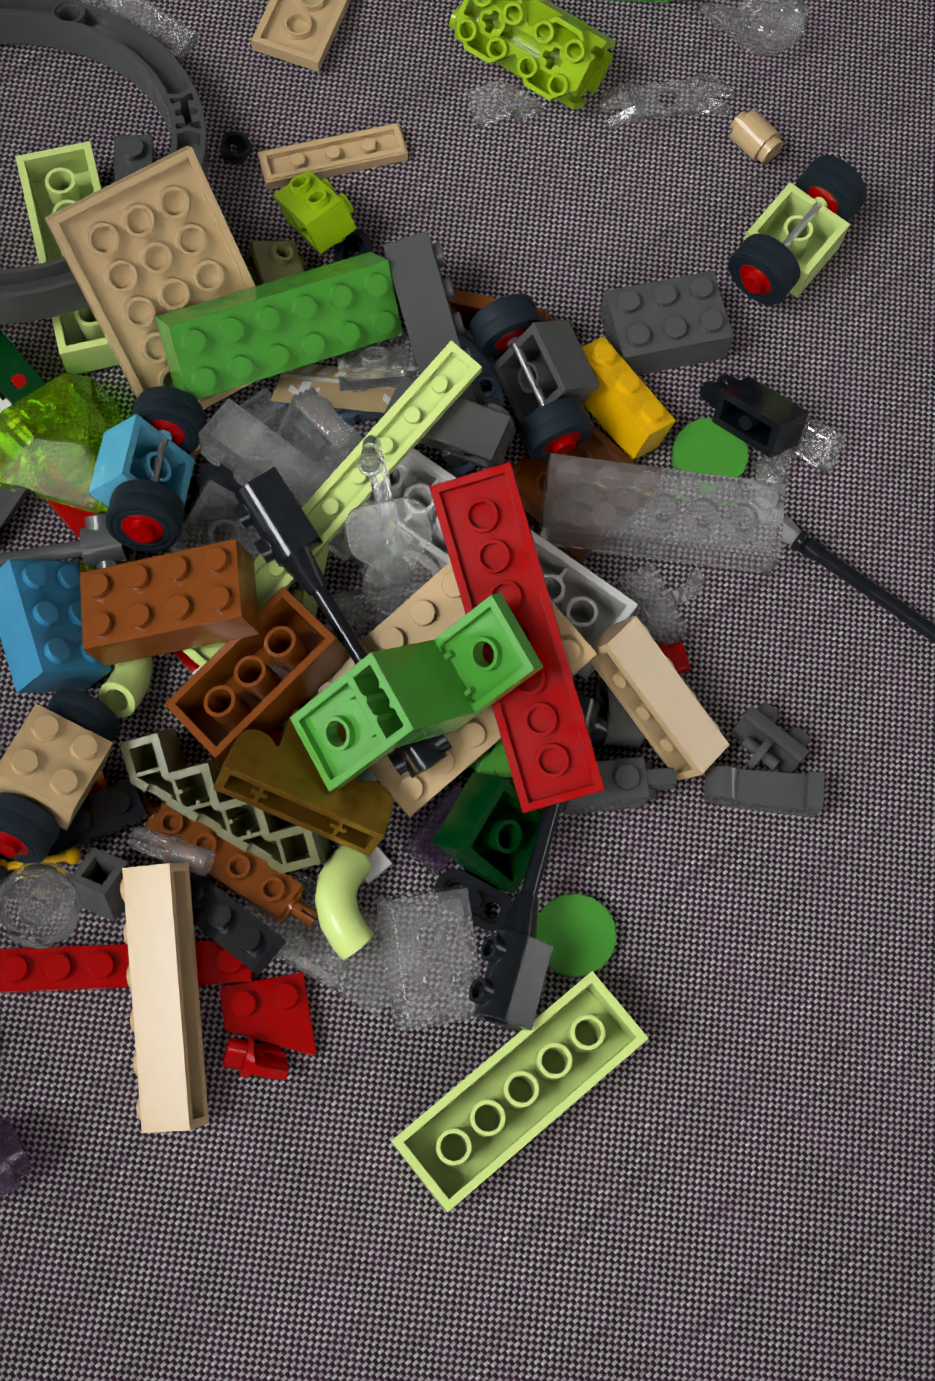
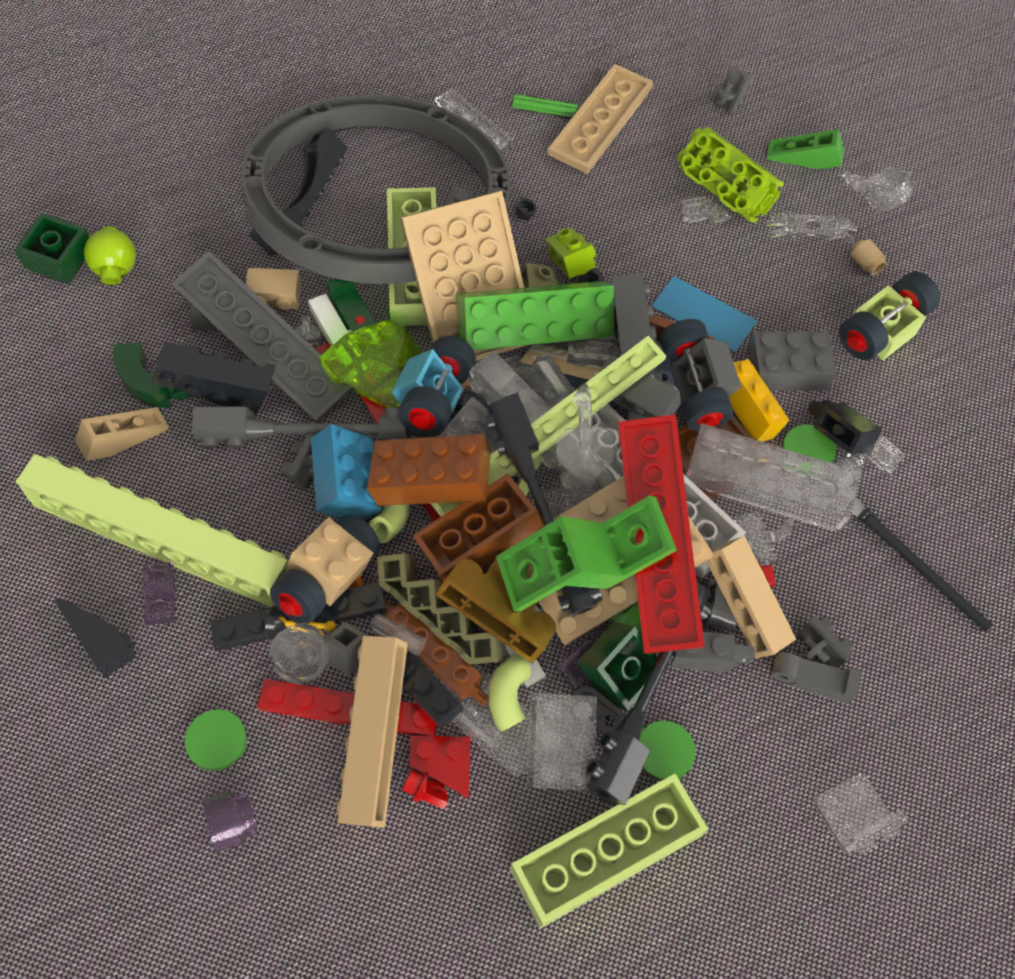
camera: 15 degrees right, 10 degrees down
(334, 155) = (589, 224): tan tile -> none
(530, 267) = (721, 320): none -> dark azure sticker
(845, 972) = (858, 815): none -> clear bracket

